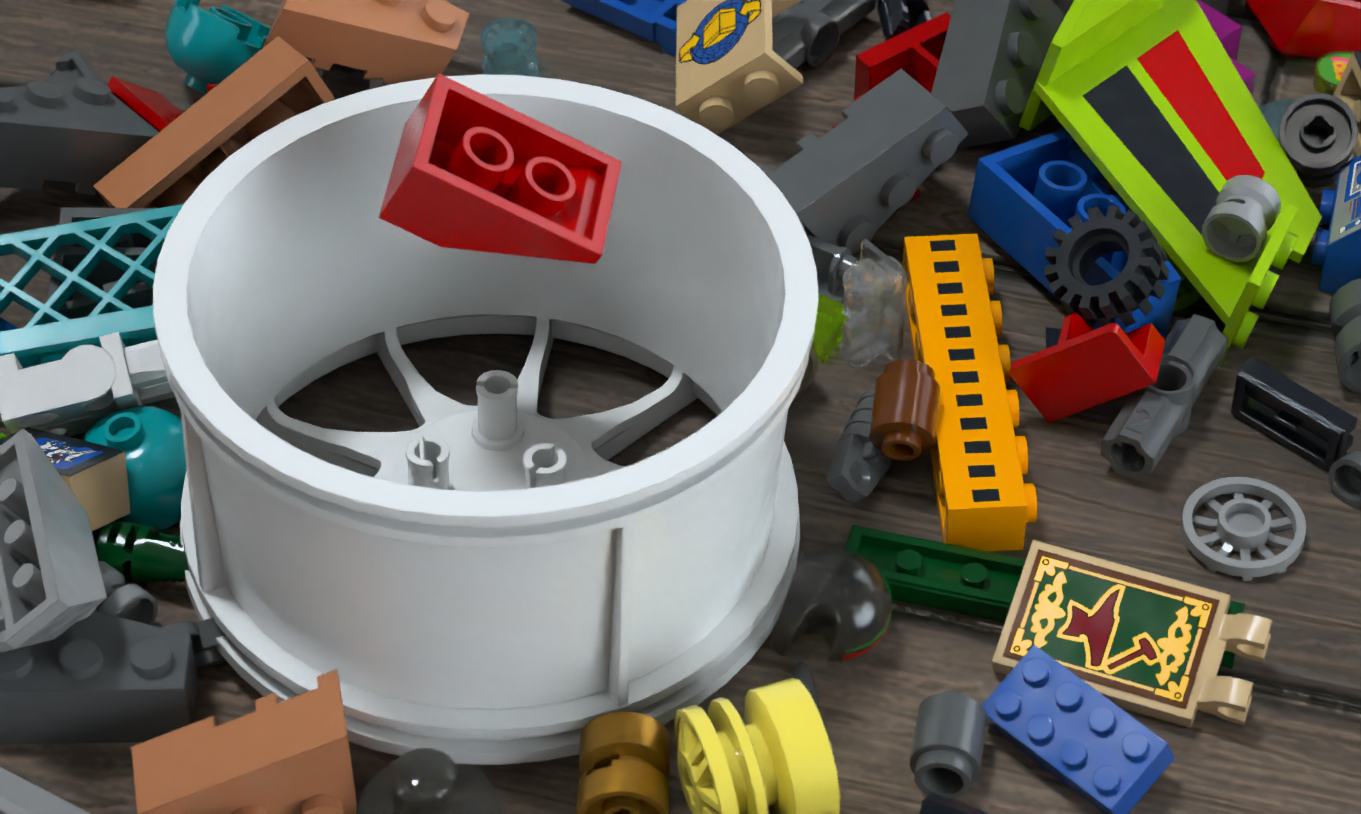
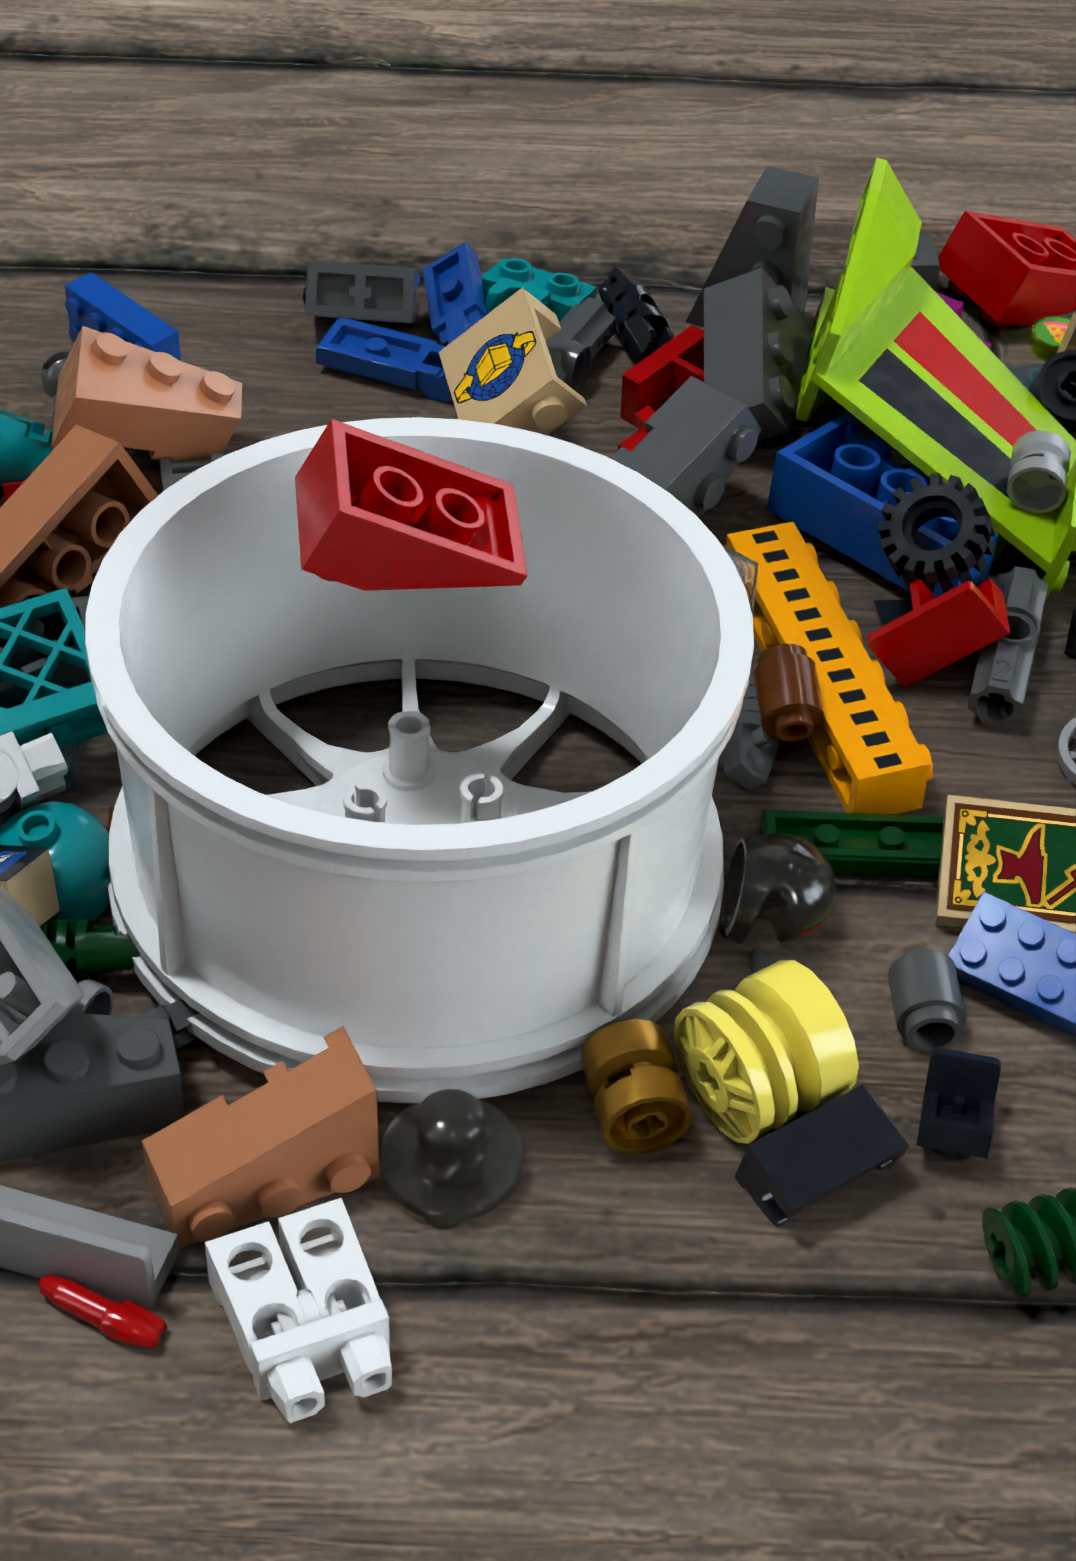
camera: 15 degrees left, 0 degrees up
(509, 48) = (283, 410): clear light blue wheel -> none

